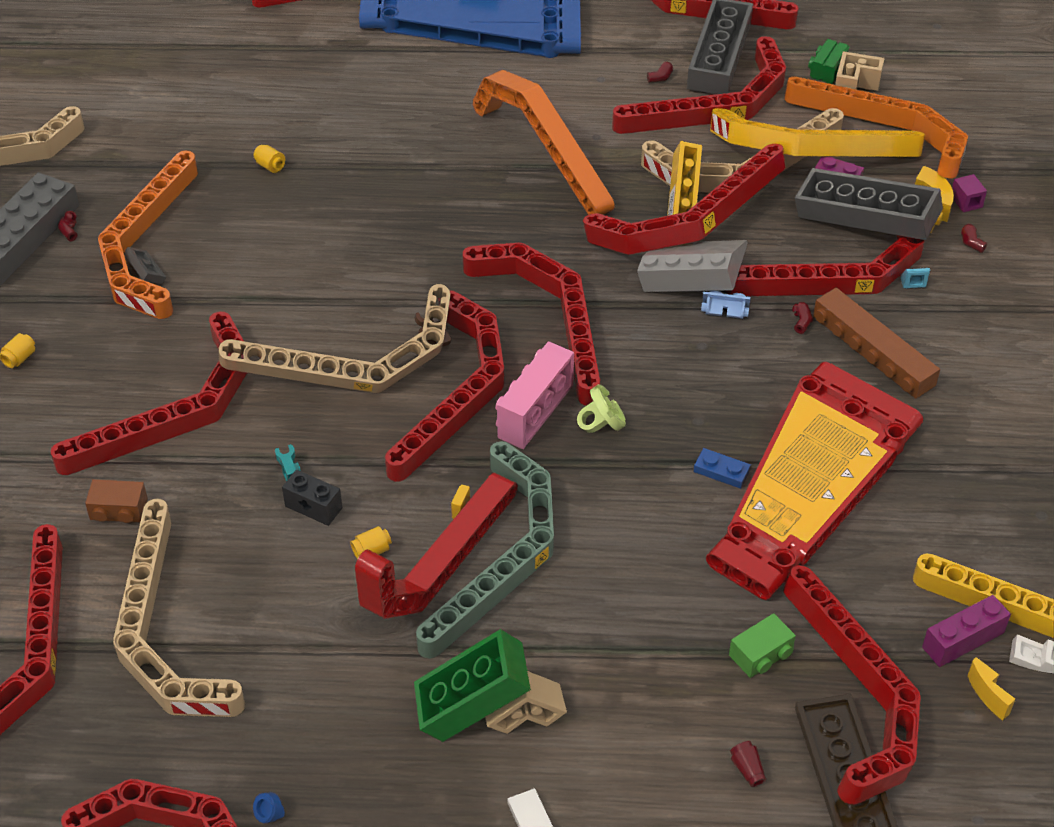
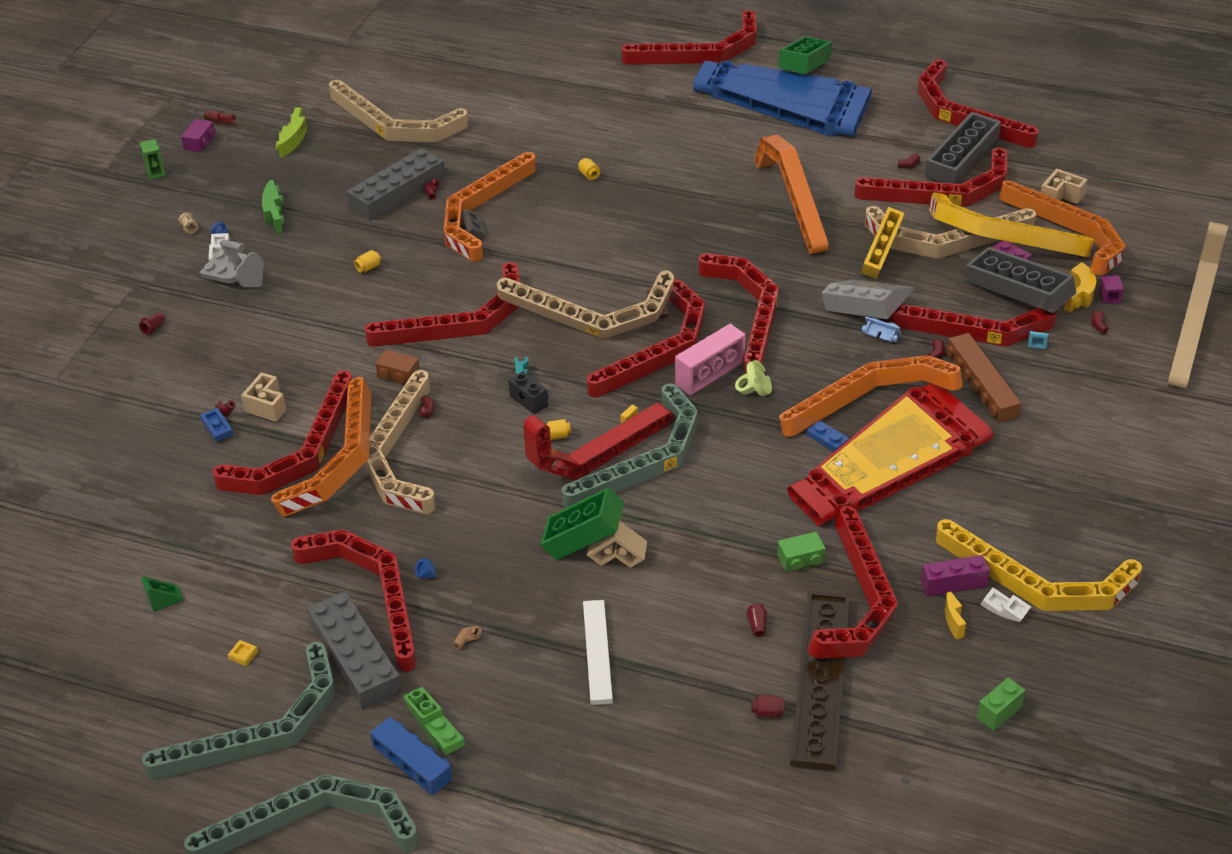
camera: 20 degrees right, 5 degrees down
(98, 675) = (342, 465): none -> orange beam
(181, 556) = (429, 406): none -> dark red arm
(696, 222) = (887, 263): red beam -> none
(736, 379) = (862, 381): none -> orange beam
(827, 61) = (1041, 174): green brick -> none

